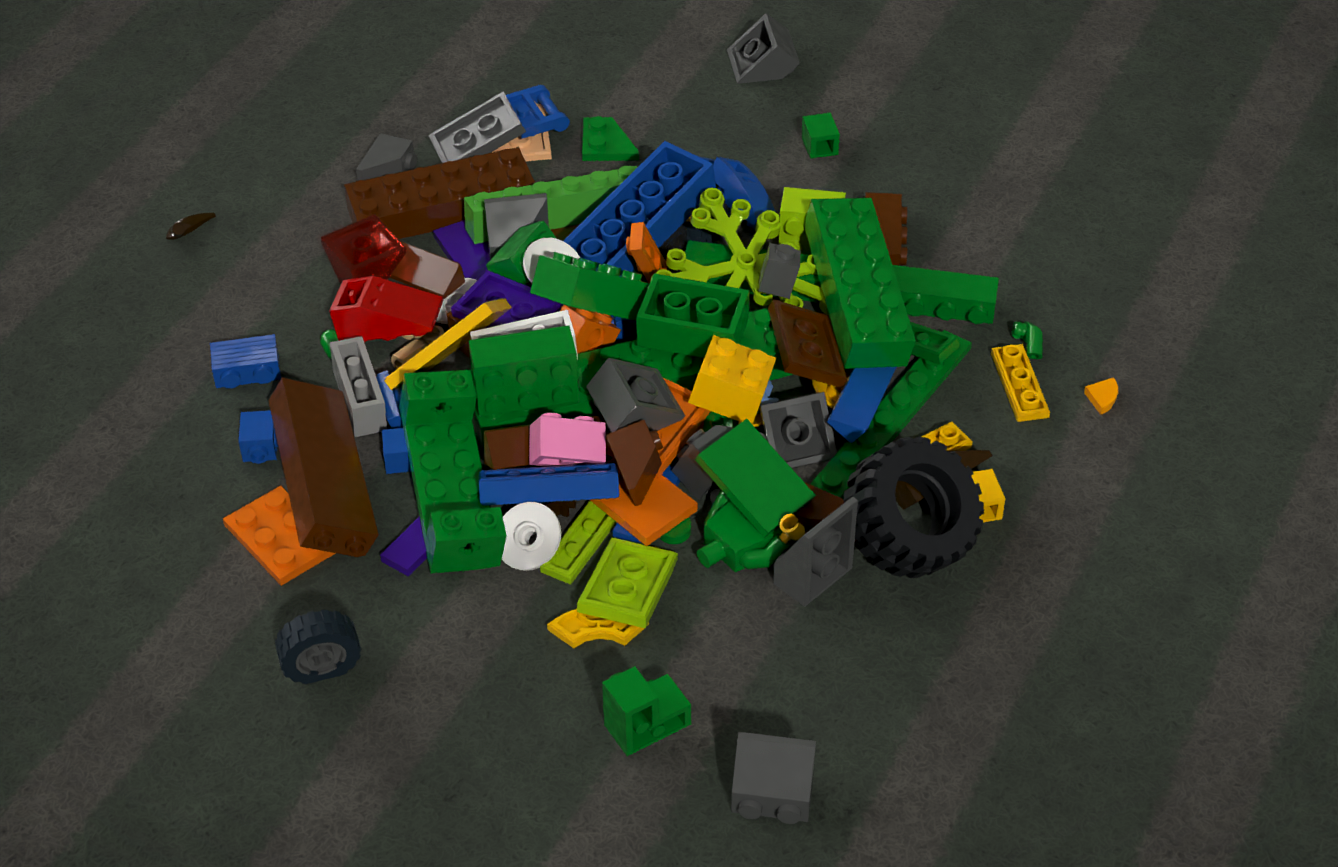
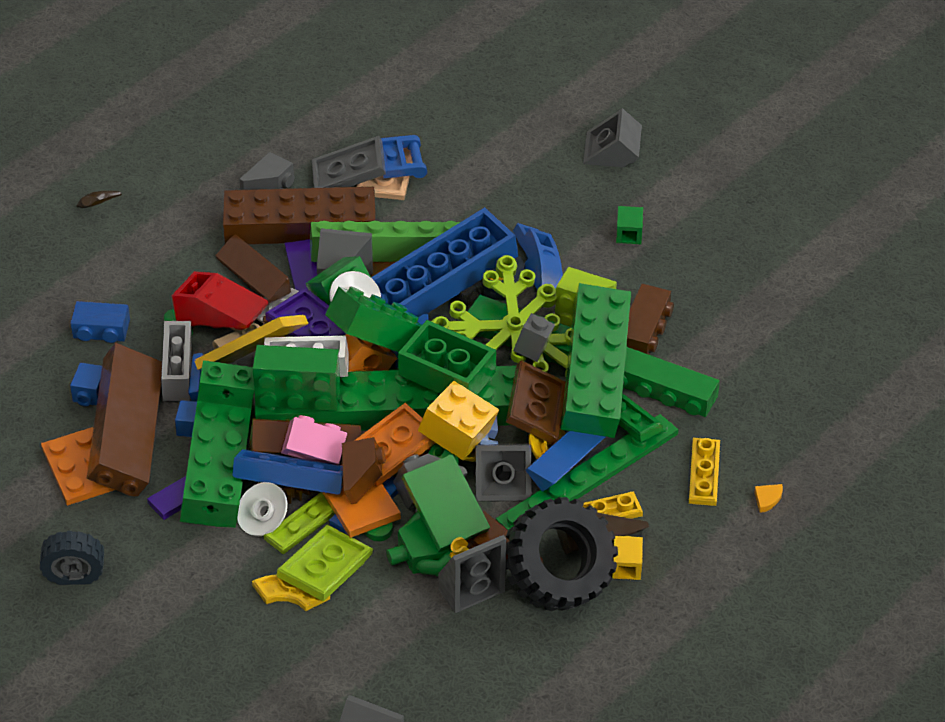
camera: 15 degrees right, 0 degrees up
(363, 250) = (220, 249): clear red slope -> none
(606, 141) = (452, 193): green wing -> none
(632, 394) = (378, 415): dark grey slope -> none
(643, 710) = (294, 665): green brick -> none
(644, 251) = (434, 297): orange plate -> none
(1031, 336) = (730, 436): green arm -> none

